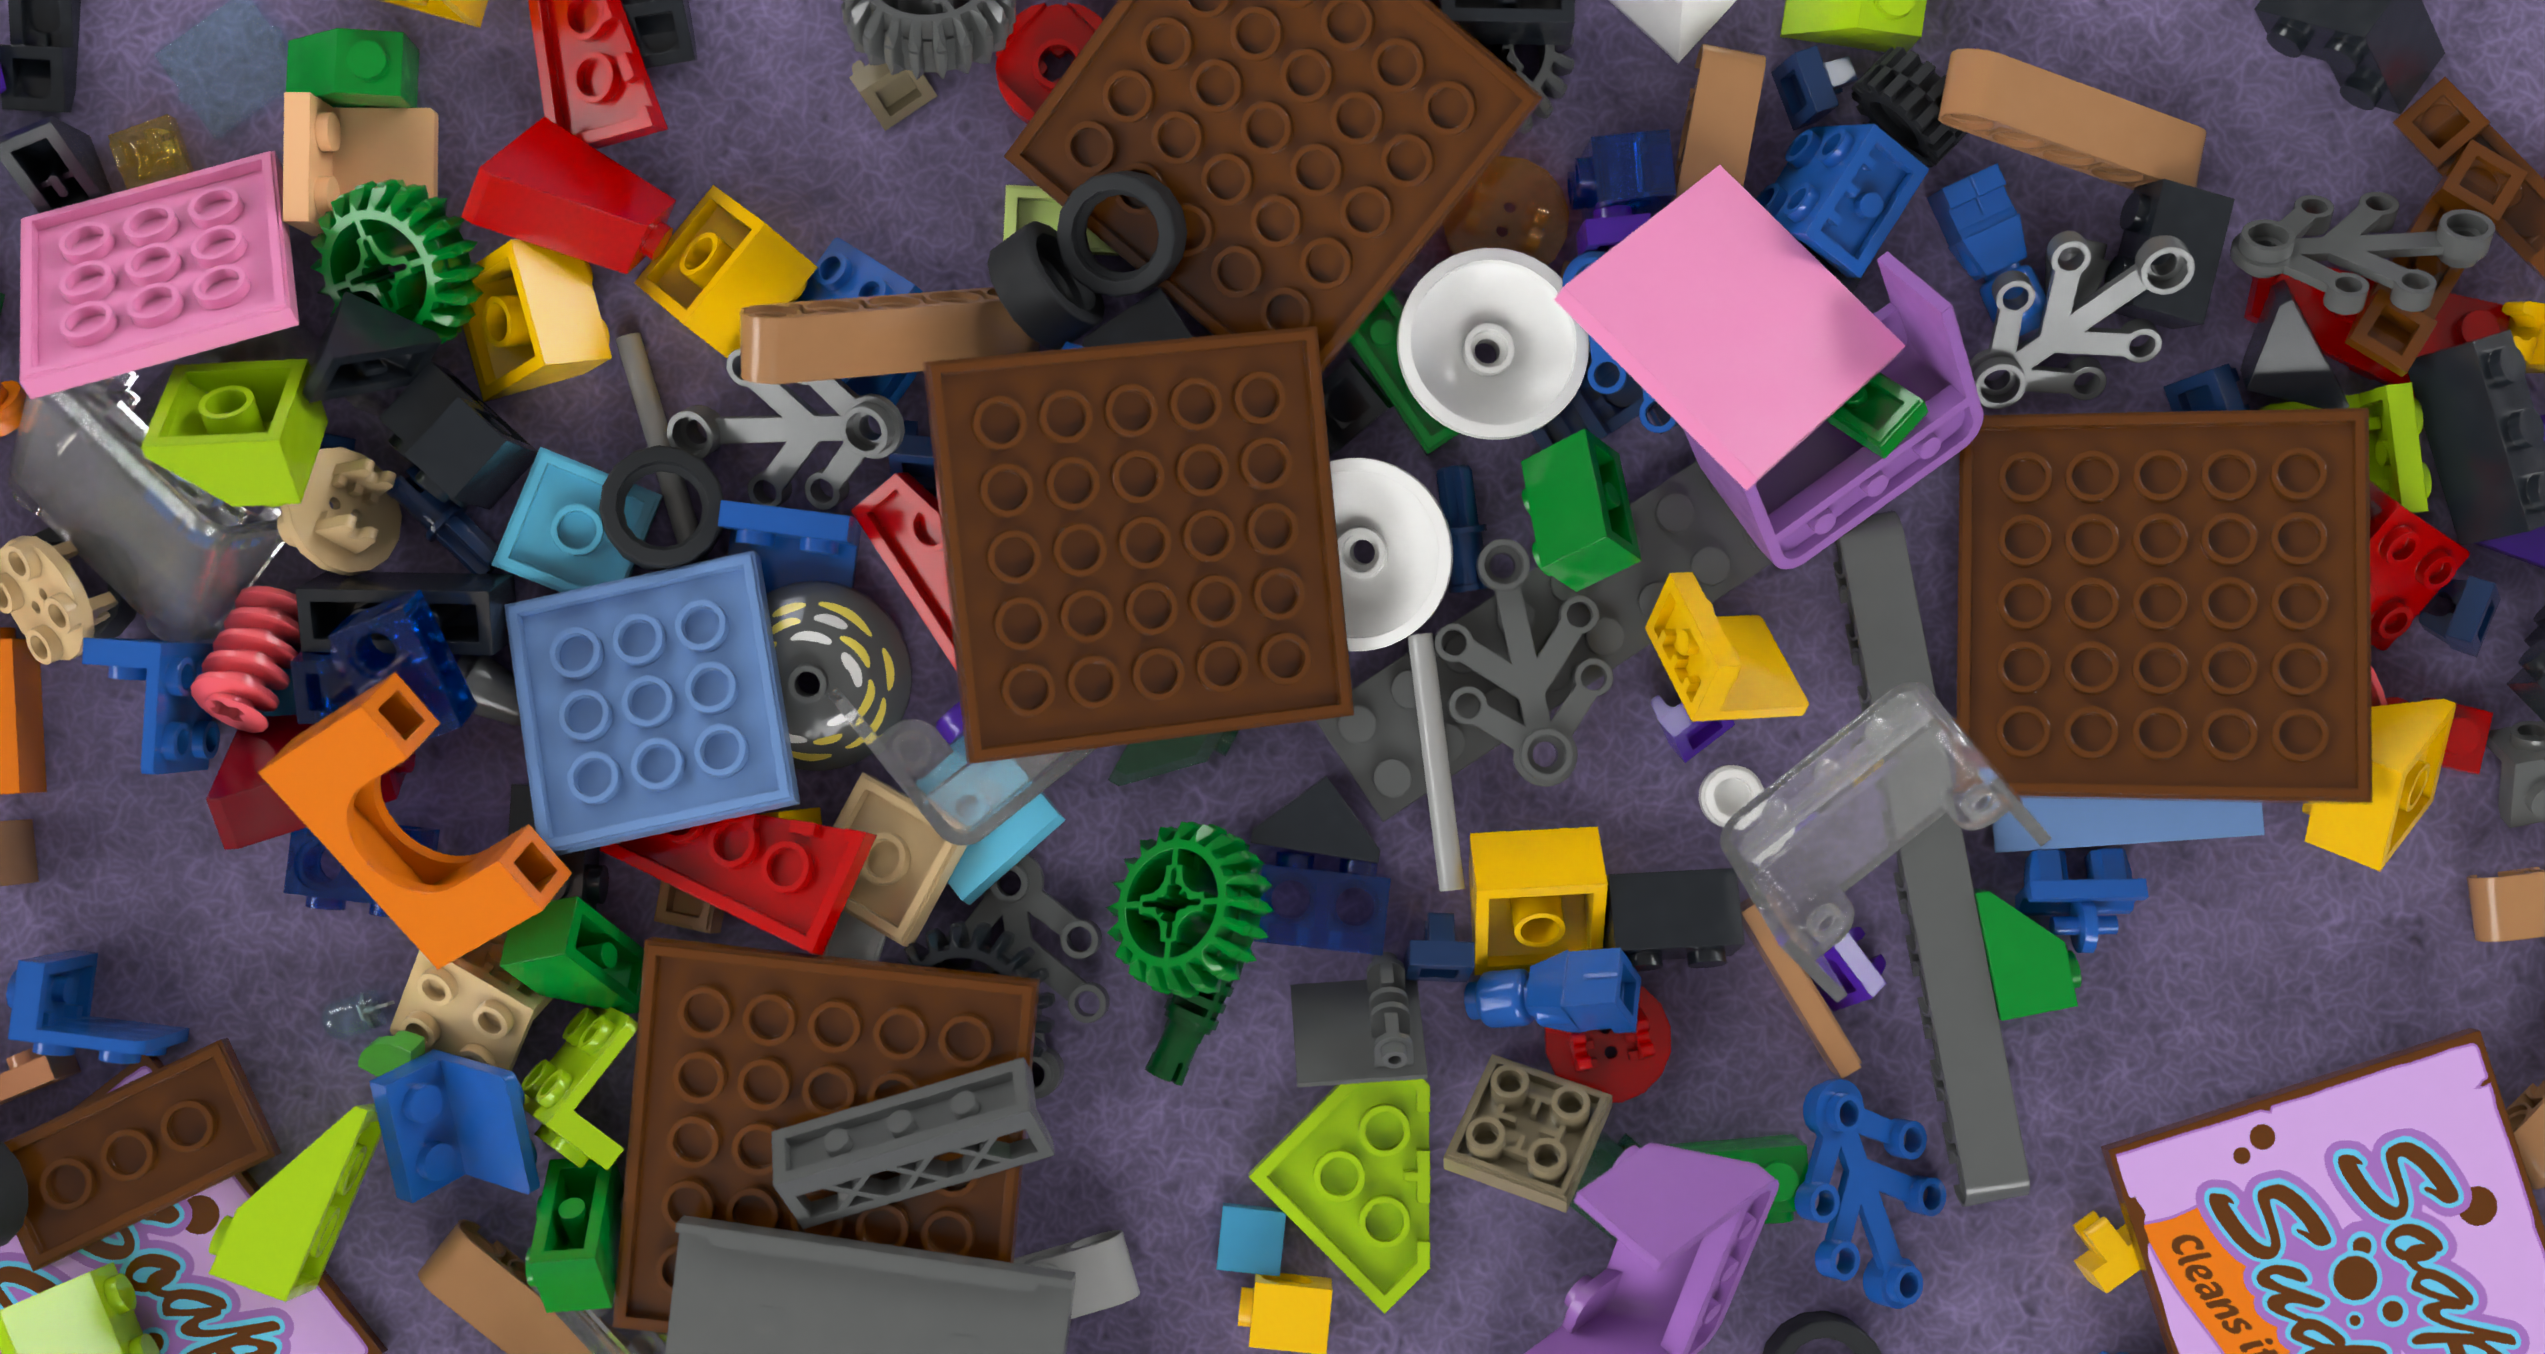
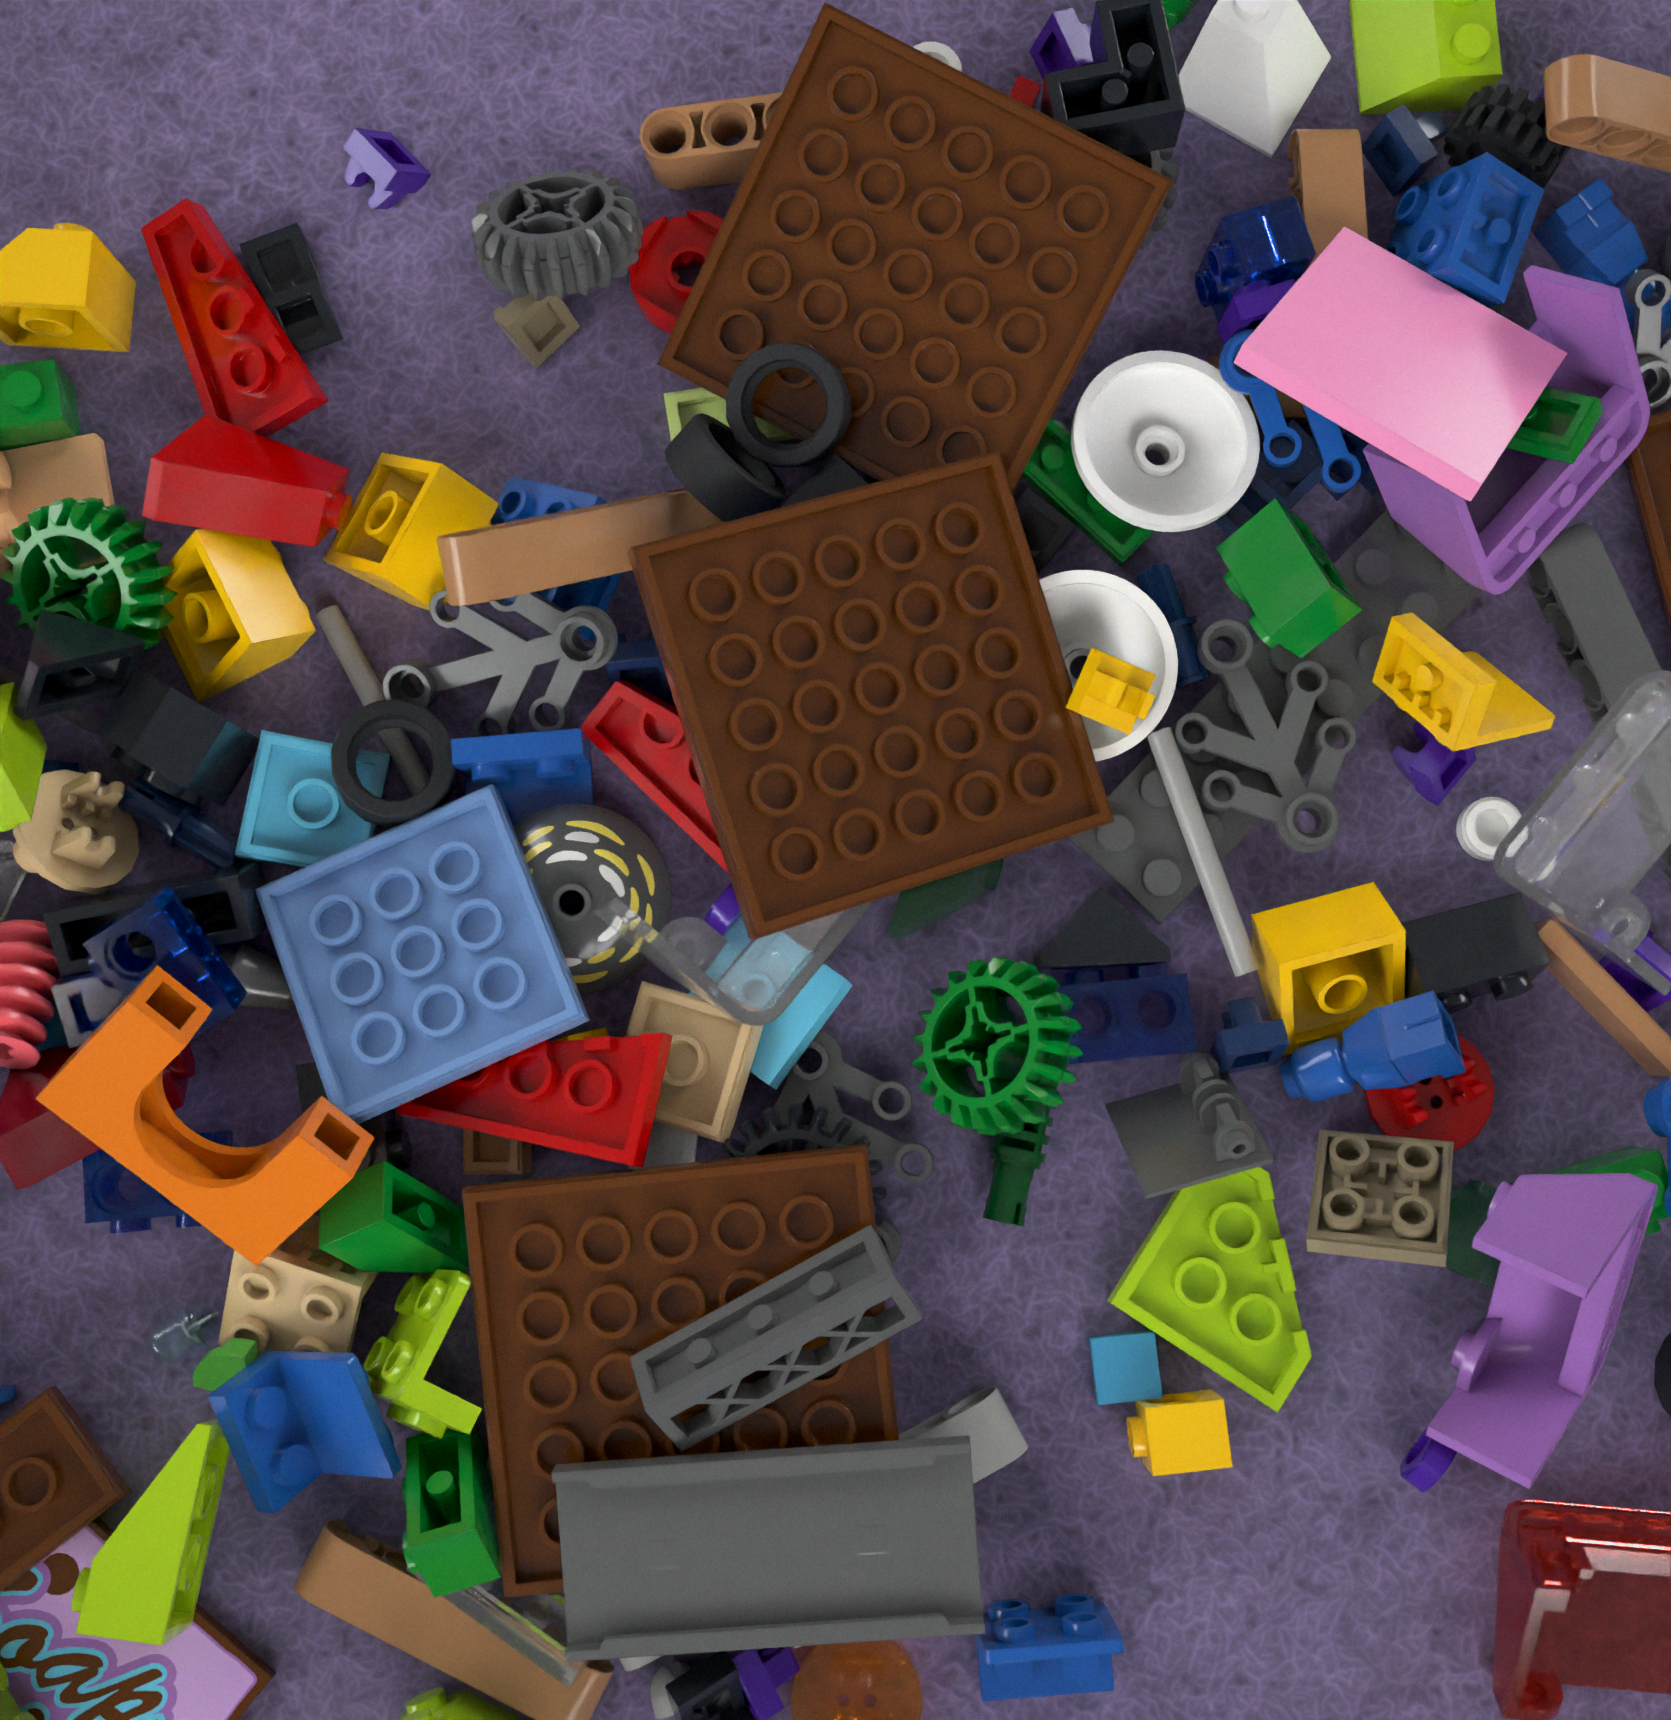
camera: 15 degrees left, 5 degrees down
(1376, 589) = (1112, 691): none -> yellow tile
(1534, 228) = (1175, 322): clear orange plate -> none

